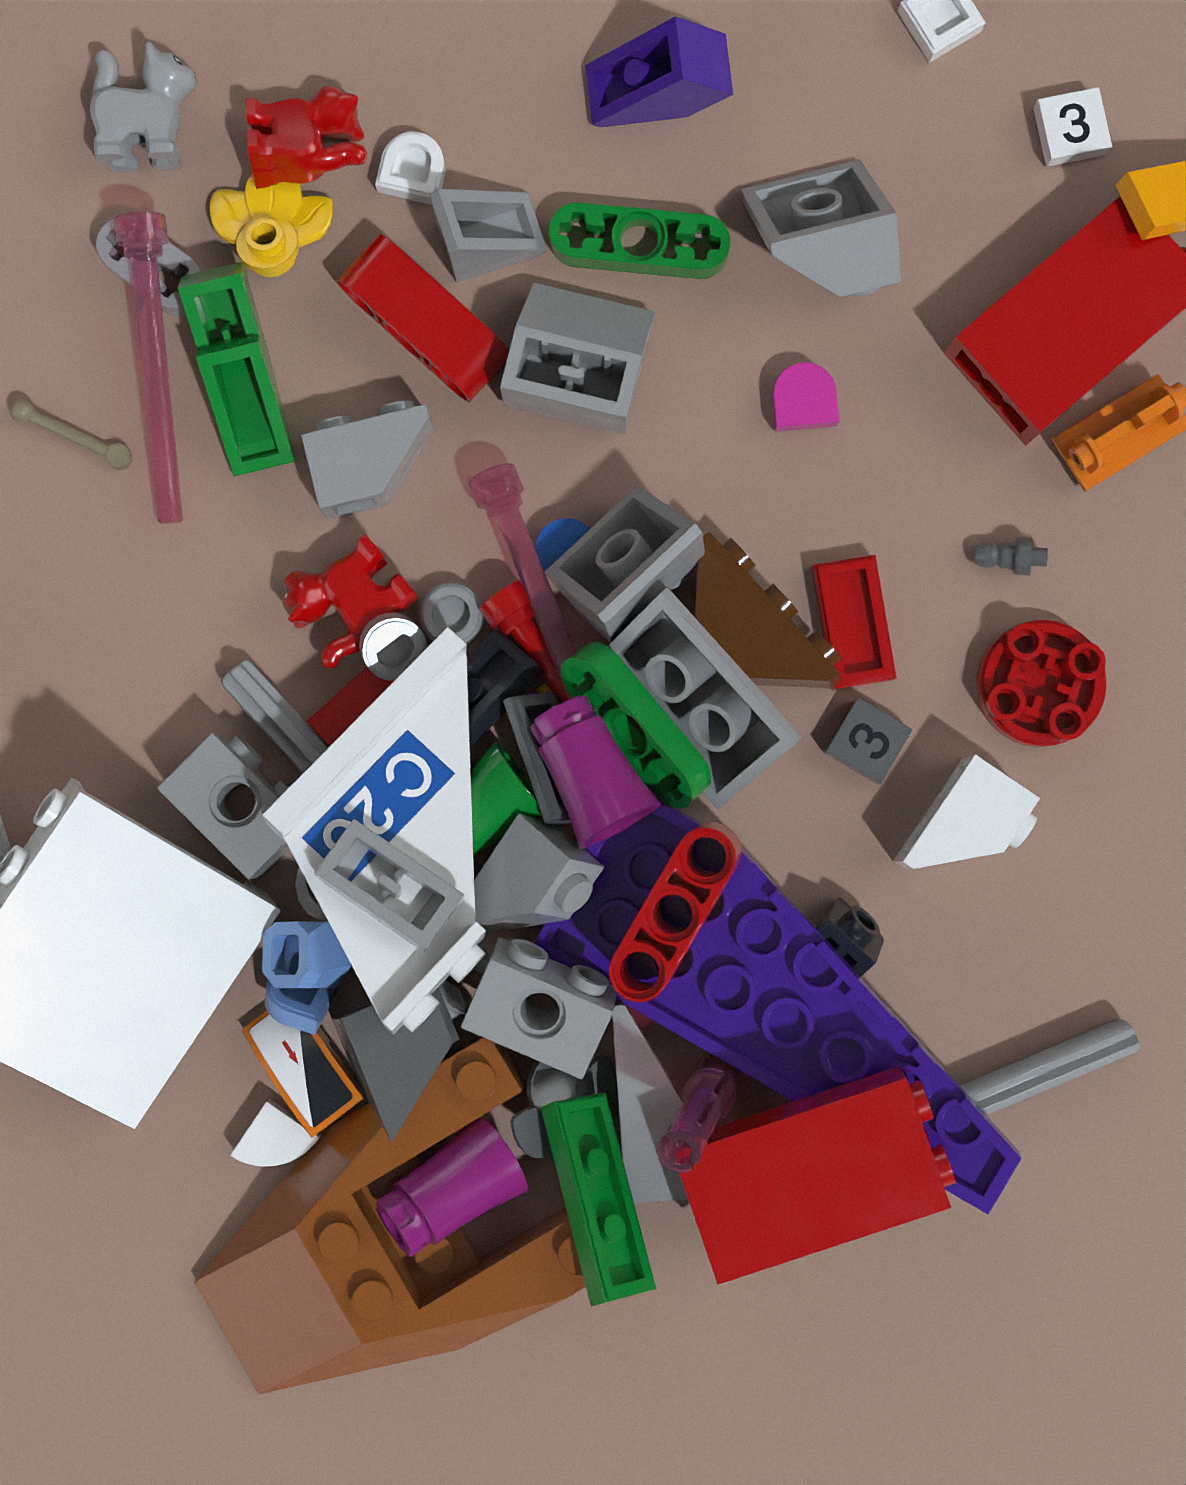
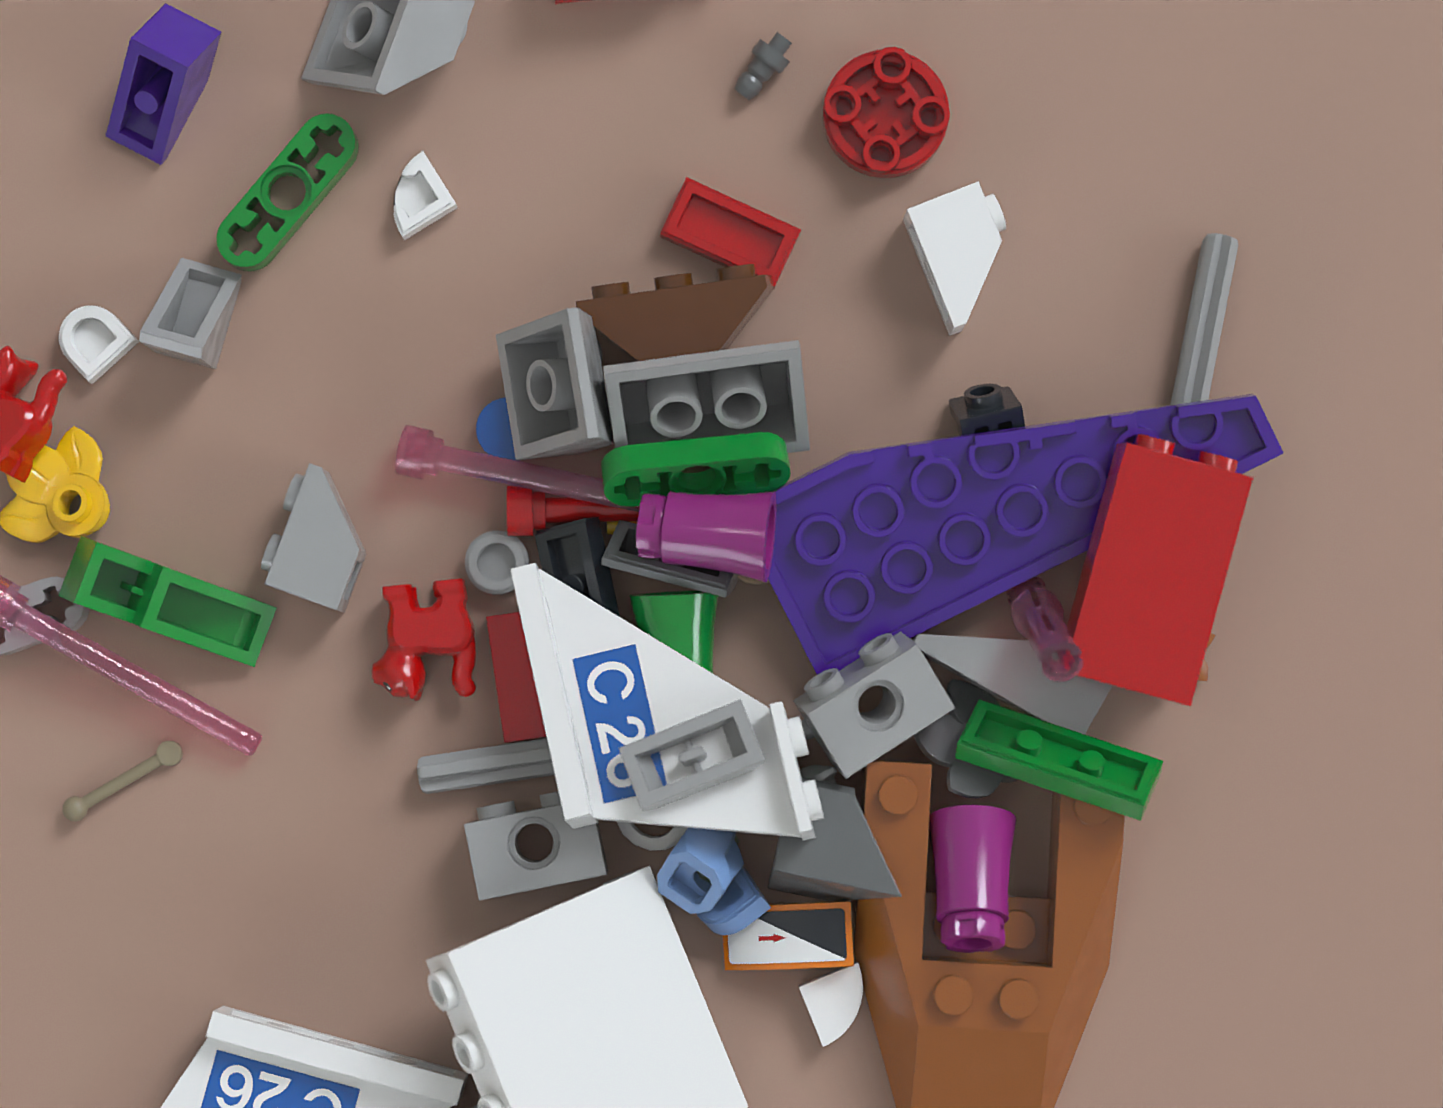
camera: 60 degrees left, 0 degrees up
(391, 645) = (491, 627): light grey tile -> none
(424, 317) = (231, 416): red beam -> none
(533, 877) = (764, 637): light grey slope -> none
(576, 358) = (354, 310): light grey slope -> none
(653, 934) = (874, 570): red beam -> none
(708, 350) = (420, 197): none -> white tile
(804, 398) = (515, 146): dark pink tile -> none
(868, 741) = (836, 288): dark grey tile -> none

